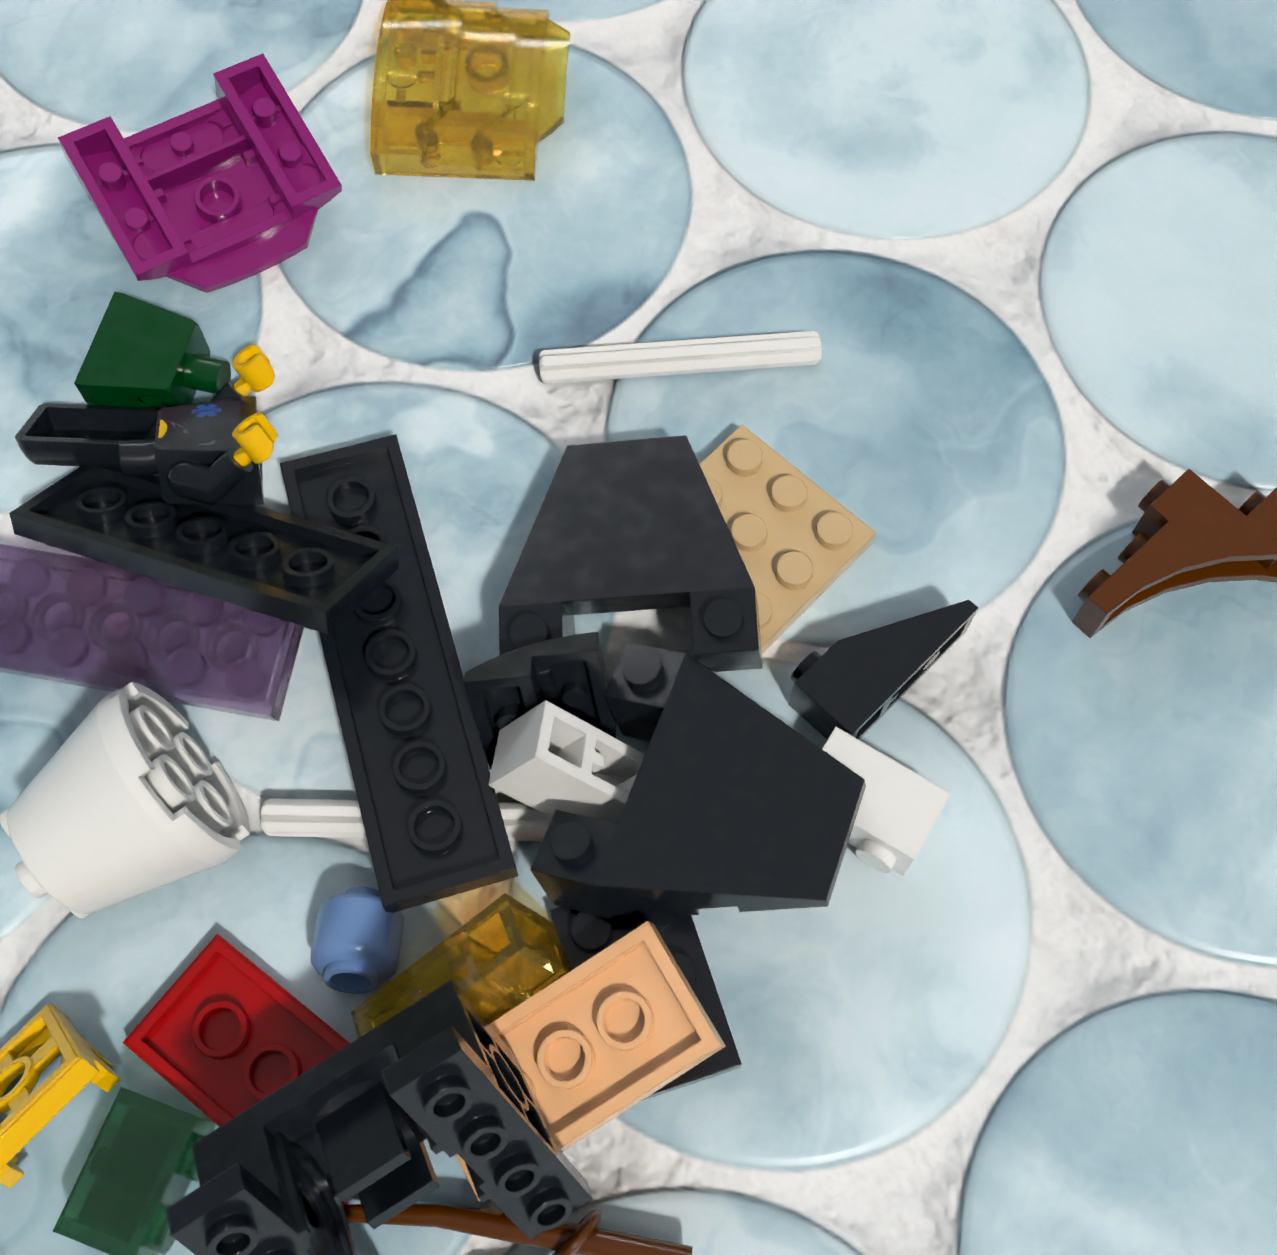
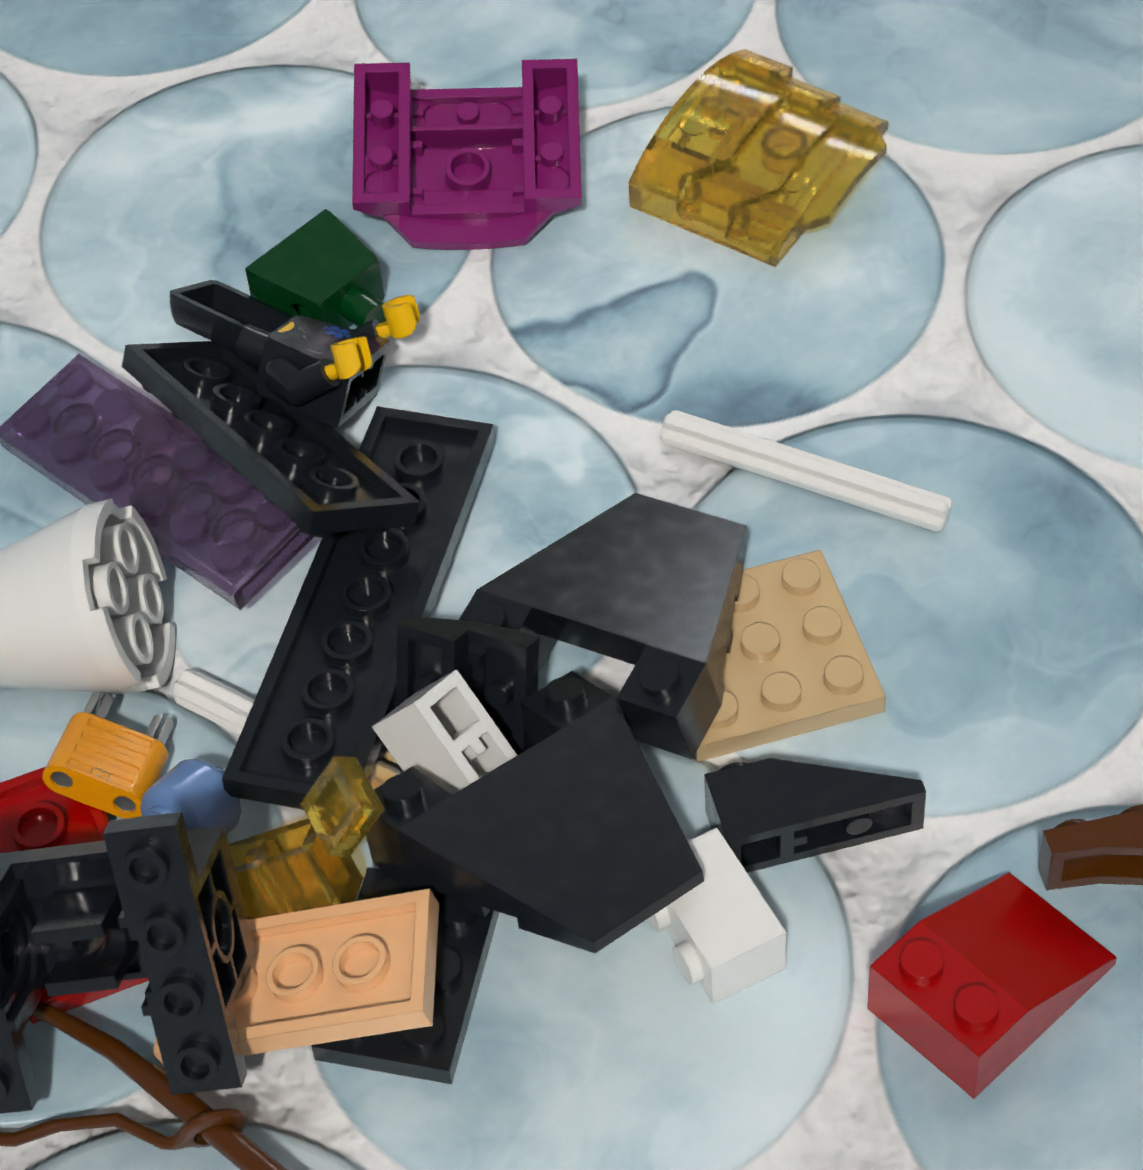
camera: 35 degrees right, 15 degrees down
(250, 935) = (107, 762): none -> light orange piece
(529, 888) = (342, 806): none -> clear yellow plate
(1109, 746) = (984, 980): none -> red slope

